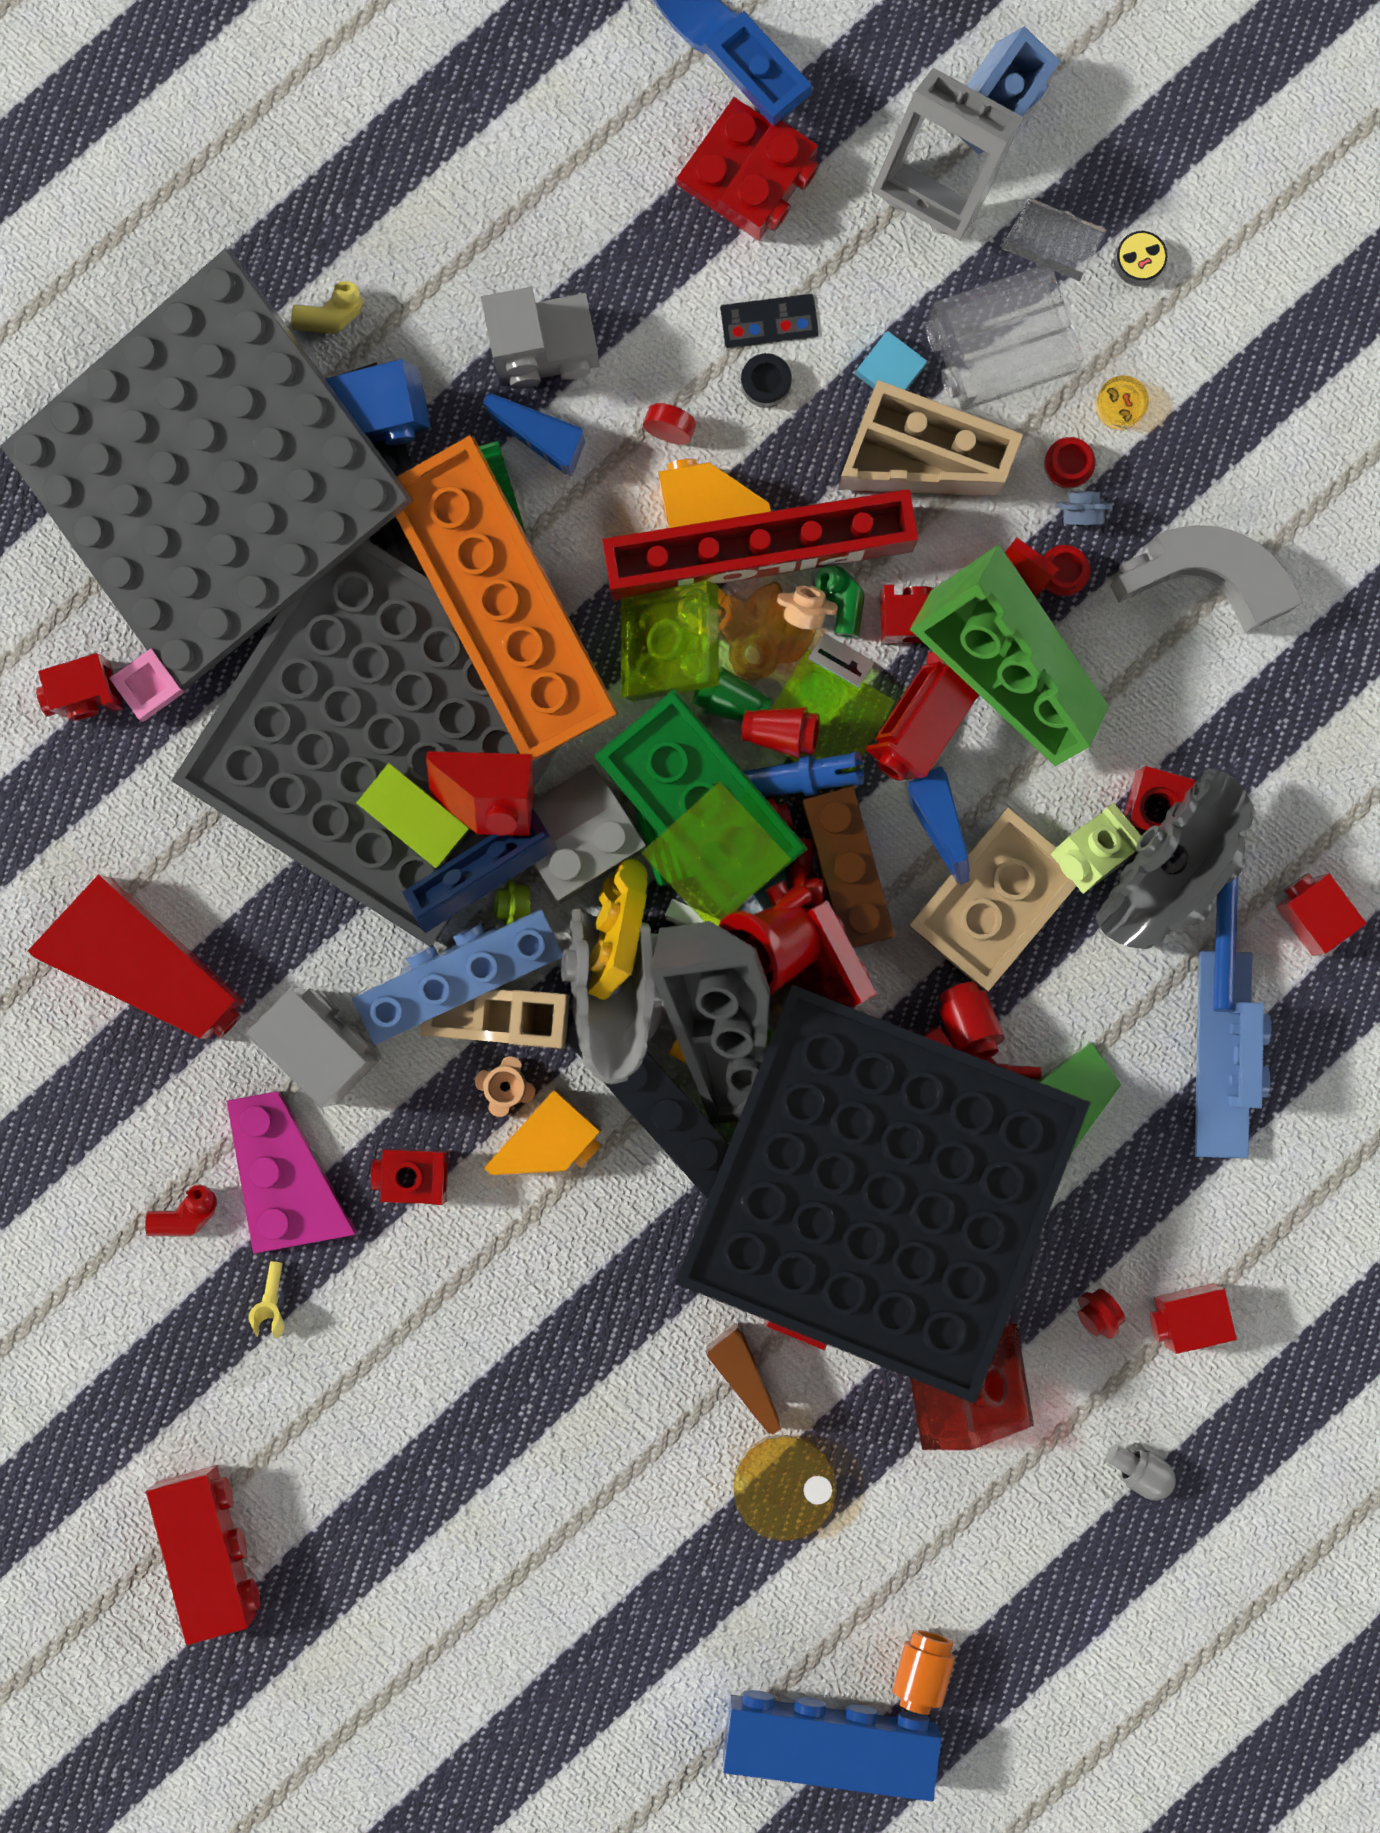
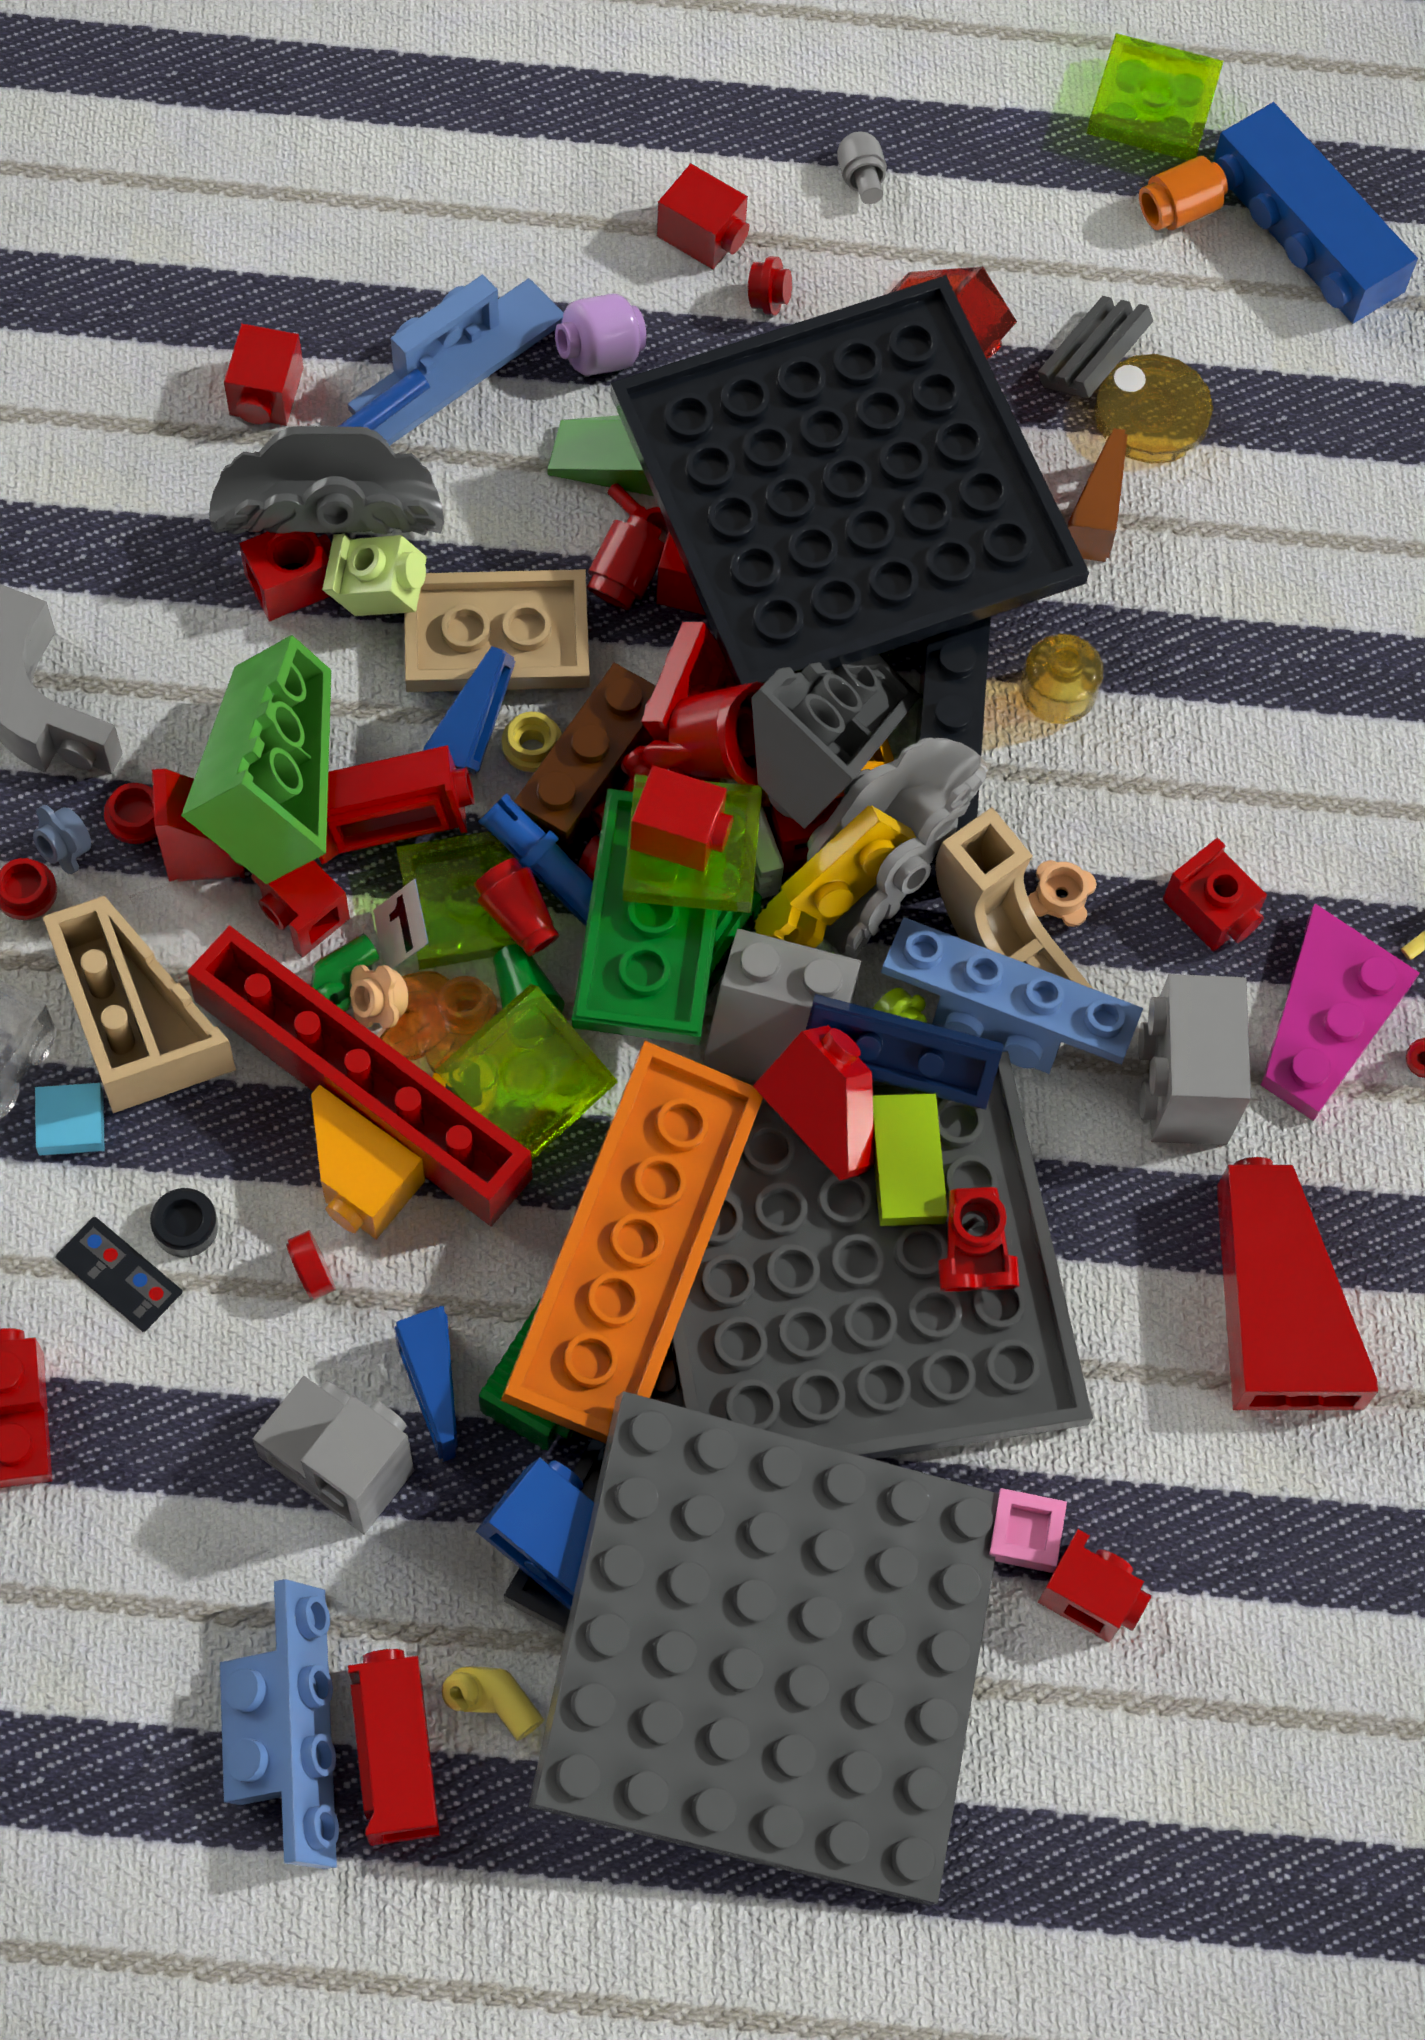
camera: 135 degrees left, 20 degrees down
(318, 797) = (979, 1260): none -> red plate
(347, 231) = (393, 1747): none -> red window
(415, 185) = (281, 1727): none -> medium blue bracket
(548, 1140) = (1075, 813): light orange slope -> none
(639, 1221) = (1061, 678): none -> clear yellow head
(725, 848) = (680, 819): none -> red brick
(869, 1490) = (1091, 346): none -> dark grey tile
(910, 842) = (524, 728): none -> light yellow plate
(1019, 1733) = (1154, 97): none -> clear neon green plate
(1159, 1163) = (601, 334): none -> lavender head

